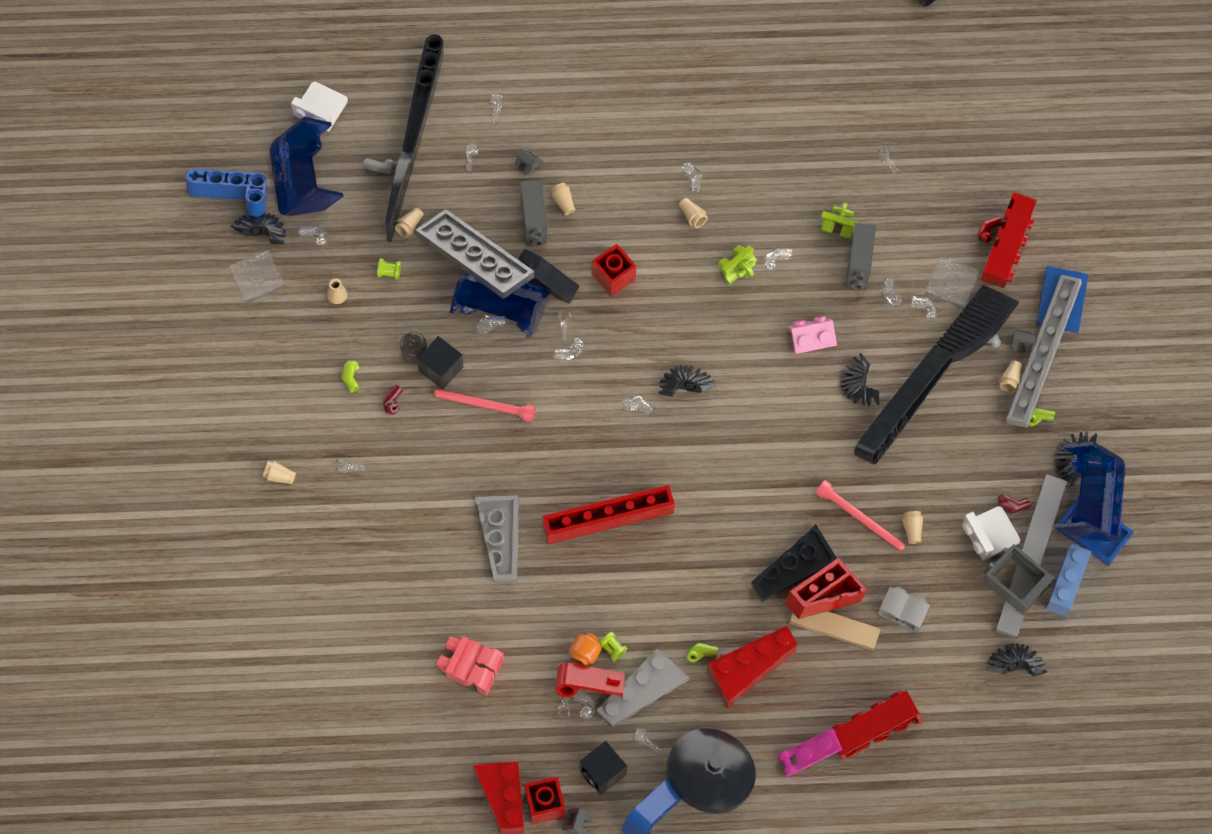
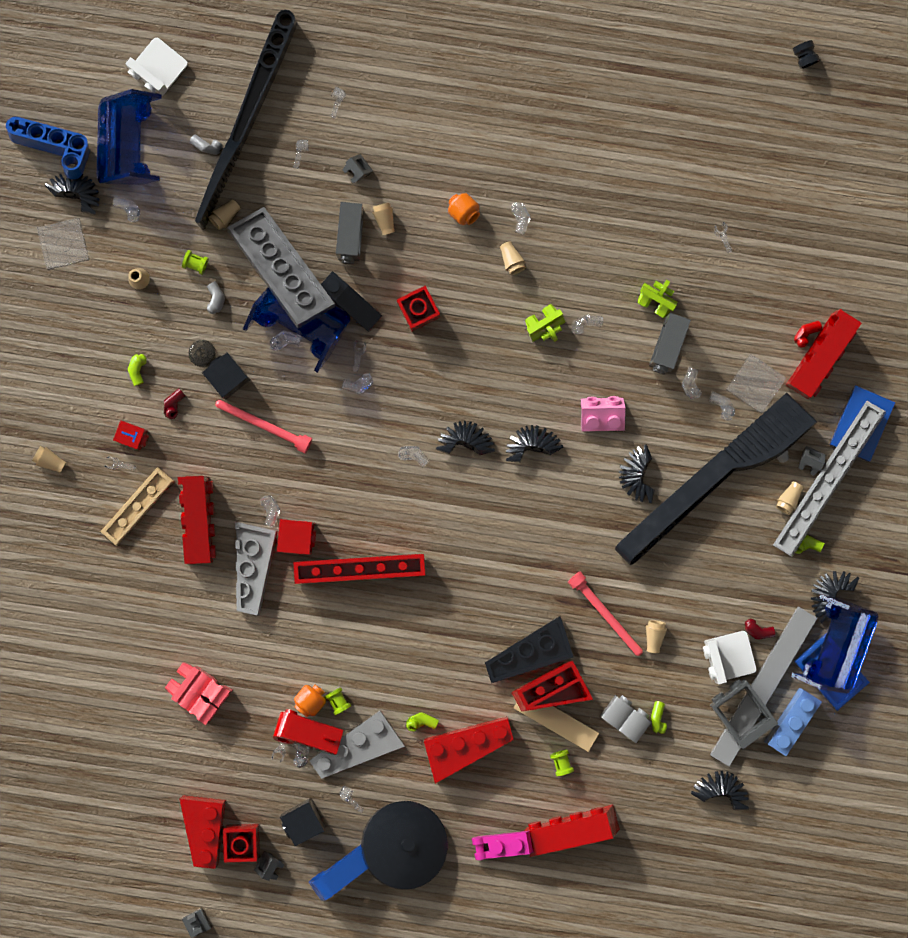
camera: 10 degrees right, 20 degrees up
(356, 435) = (131, 435): none -> red brick
(374, 502) = (137, 506): none -> tan tile
(417, 298) = (217, 300): none -> light grey arm
(436, 497) = (197, 519): none -> red wedge
(508, 479) = (271, 508): none -> clear arm
(539, 496) = (296, 537): none -> red head
(637, 177) = (463, 209): none -> orange head
(750, 372) = (532, 442): none -> black hair
(850, 663) = (562, 762): none -> lime bush
(933, 601) = (656, 716): none -> lime arm

